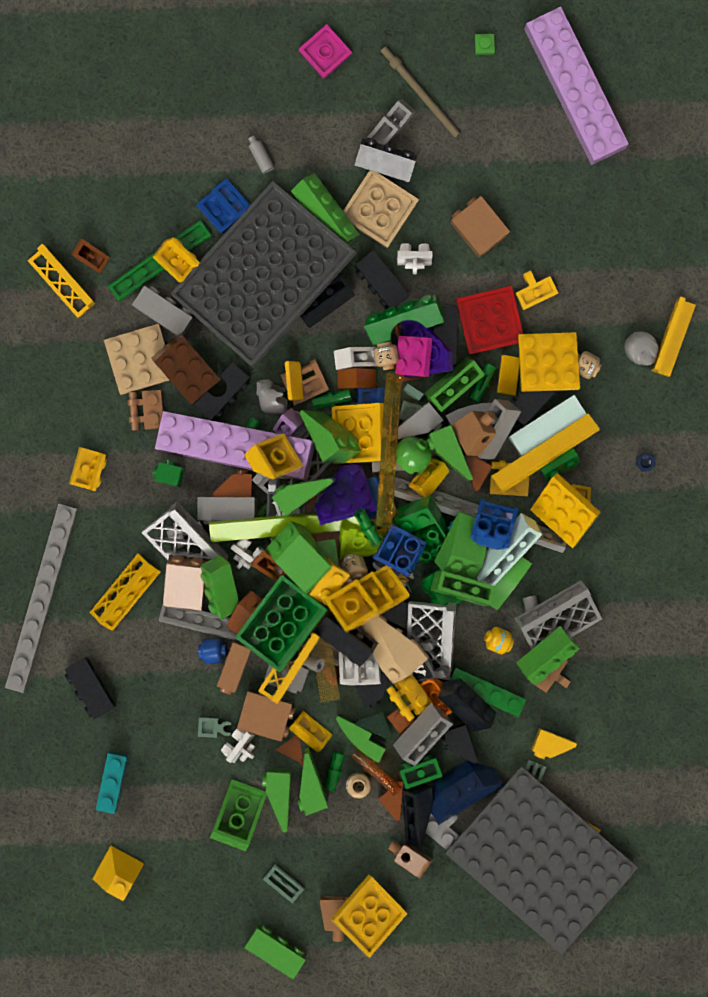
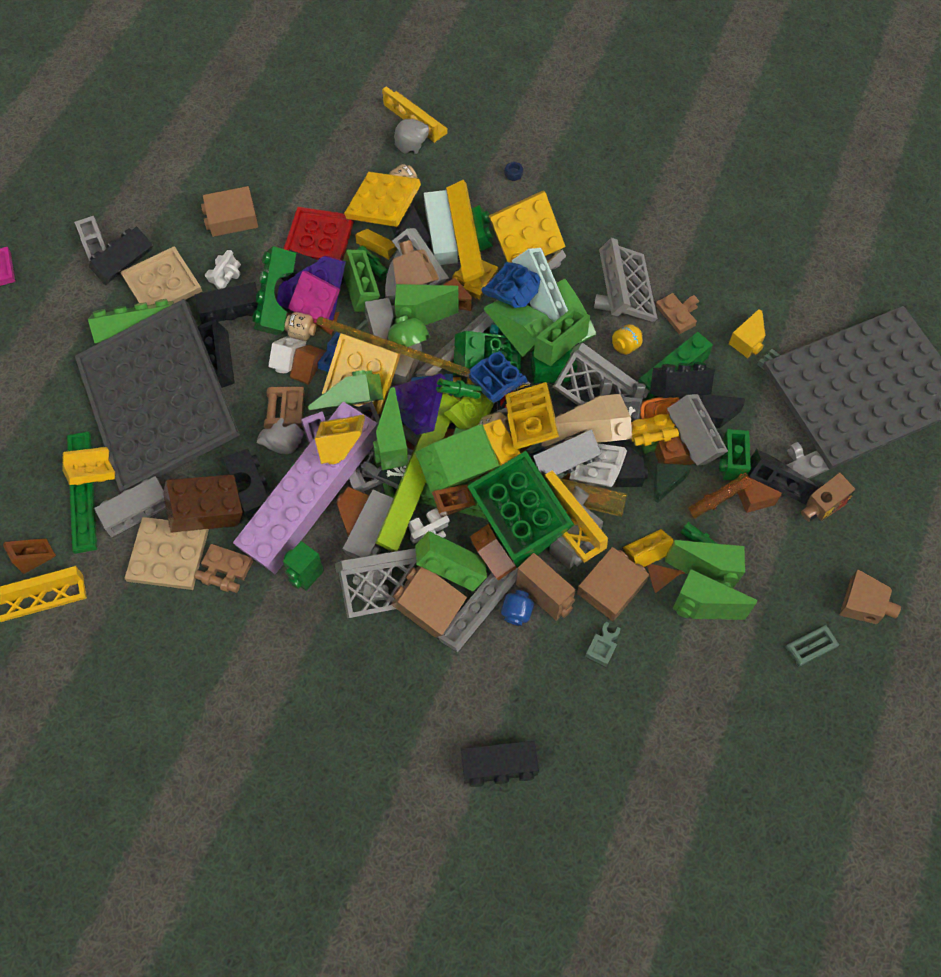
camera: 70 degrees left, 25 degrees down
(41, 598) = (371, 779): light grey plate -> none
(88, 469) = (250, 654): yellow bracket -> none
(111, 782) = (635, 792): teal arch -> none
(117, 872) = (737, 830): yellow slope -> none
(126, 594) = (411, 672): yellow fence -> none
(223, 206) = (68, 410): blue slope -> none
(233, 753) = (630, 617): white hips -> none
(238, 815) = (717, 659): bright green slope -> none
(260, 155) = (44, 358): light grey cylinder -> none
(276, 951) = (891, 683): bright green brick -> none
(294, 380) = (275, 412): yellow slope -> none
(331, 399) = (315, 388): green pin -> none
(355, 791) = (727, 519): tan head -> none
(361, 738) = (676, 499): bright green slope -> none
(368, 916) = (881, 564): yellow plate -> none
(396, 64) = (44, 221): dark tan bar -> none
(414, 393) = (349, 317): sand green tile -> none
(430, 478) = (440, 336): yellow slope -> none
(462, 788) = (769, 427): dark blue wedge -> none
(484, 44) = (77, 153): bright green plate -> none
(535, 292) = (314, 193): yellow plate -> none
(548, 655) = (661, 300): bright green brick -> none
(576, 85) = (157, 101): lavender brick -> none

